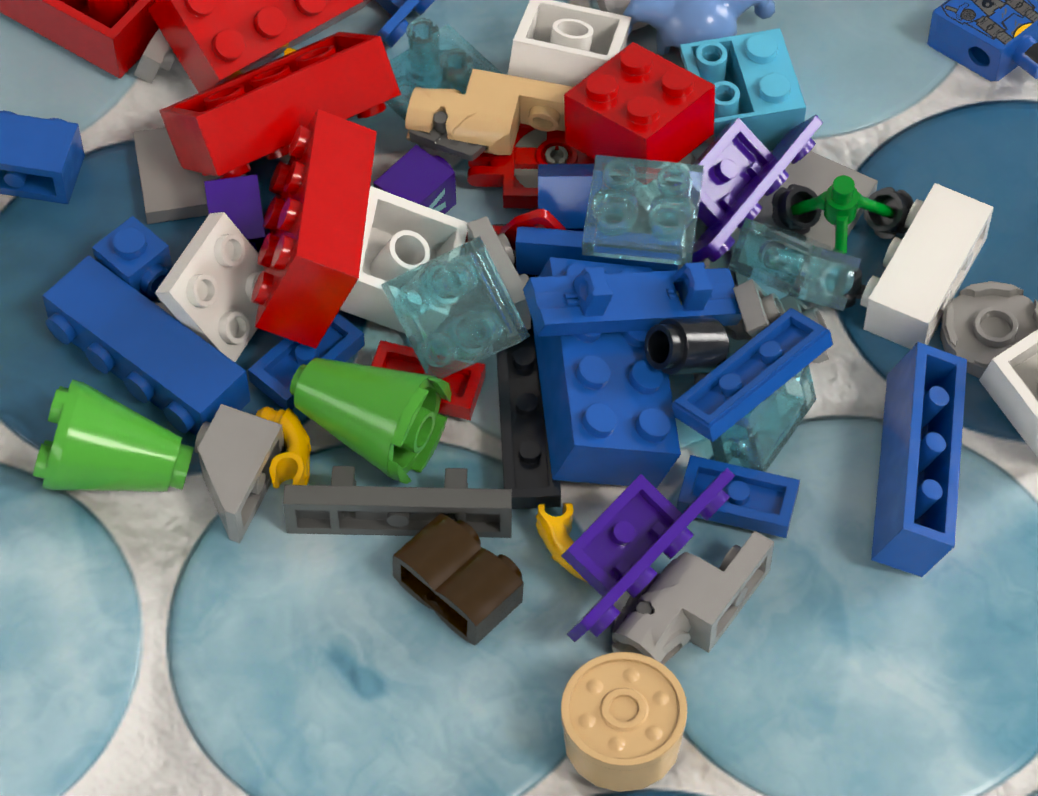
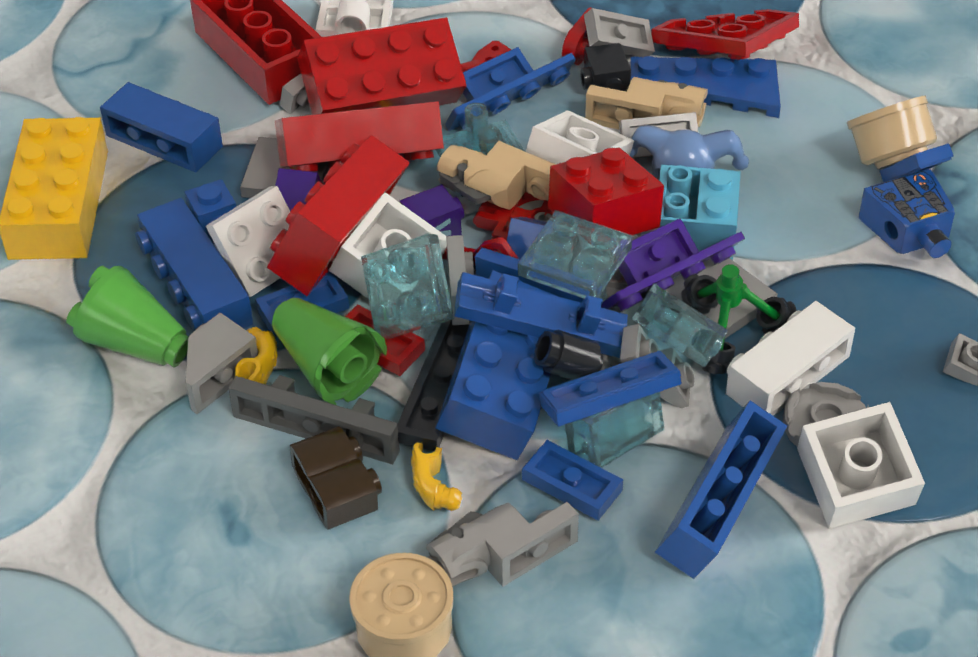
camera: 20 degrees right, 10 degrees down
(628, 538) = (468, 480): dark purple bracket -> none

